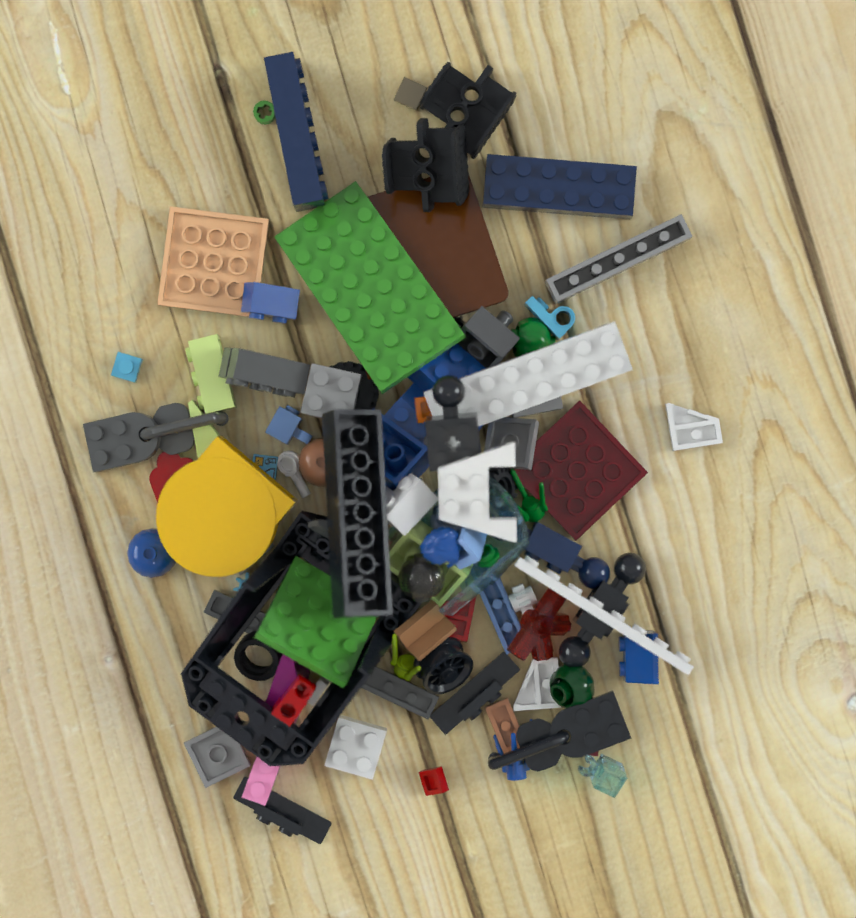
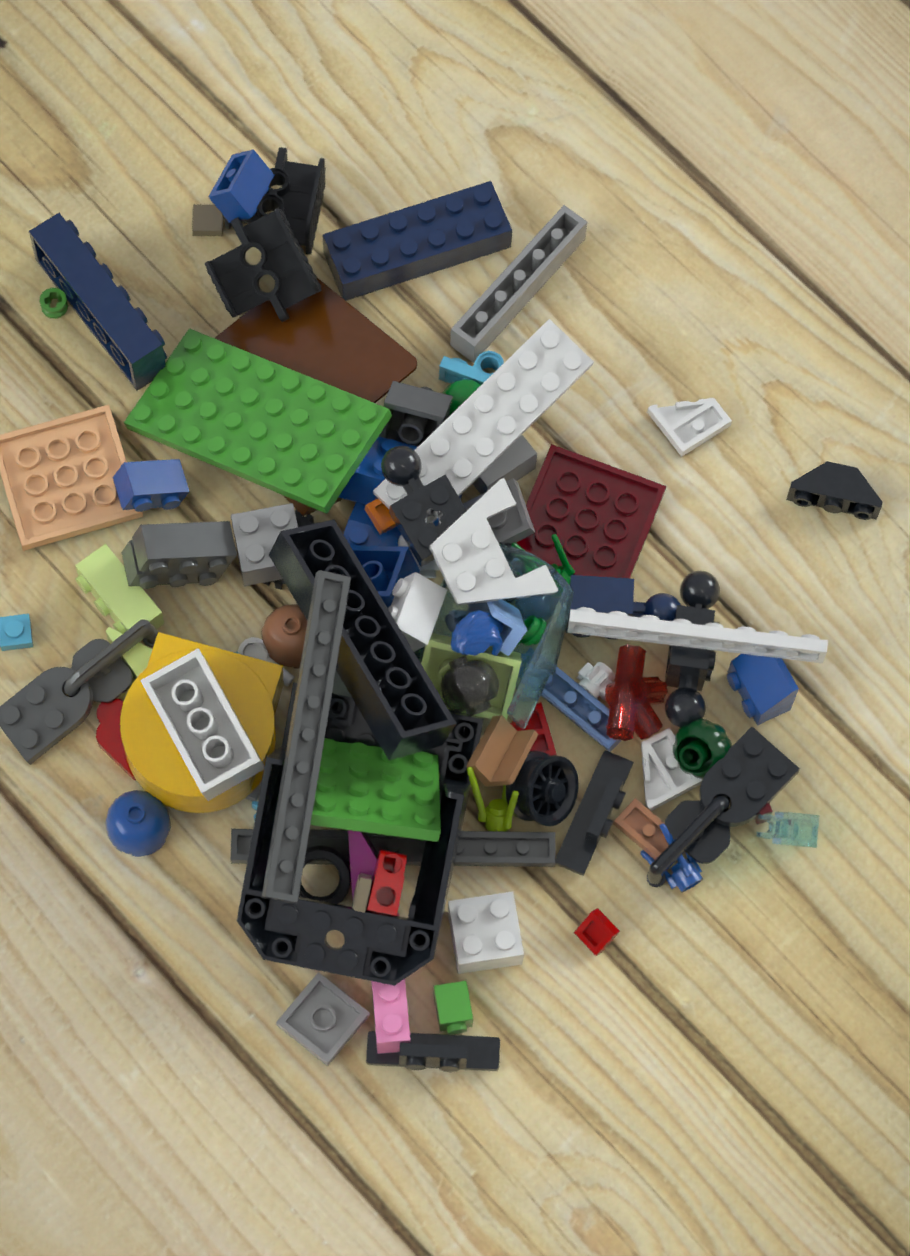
camera: 30 degrees left, 20 degrees down
(215, 527) = (202, 724): none -> white brick
(274, 696) = (361, 892): none -> dark tan tile
(281, 577) = (306, 737): none -> dark grey plate
(285, 426) = (232, 613): medium blue brick -> none
(309, 788) = (453, 1007): none -> bright green brick
(321, 685) = (410, 882): white tile -> none
(439, 94) = (241, 186): none -> blue brick
(772, 532) = (836, 490): none -> black slope

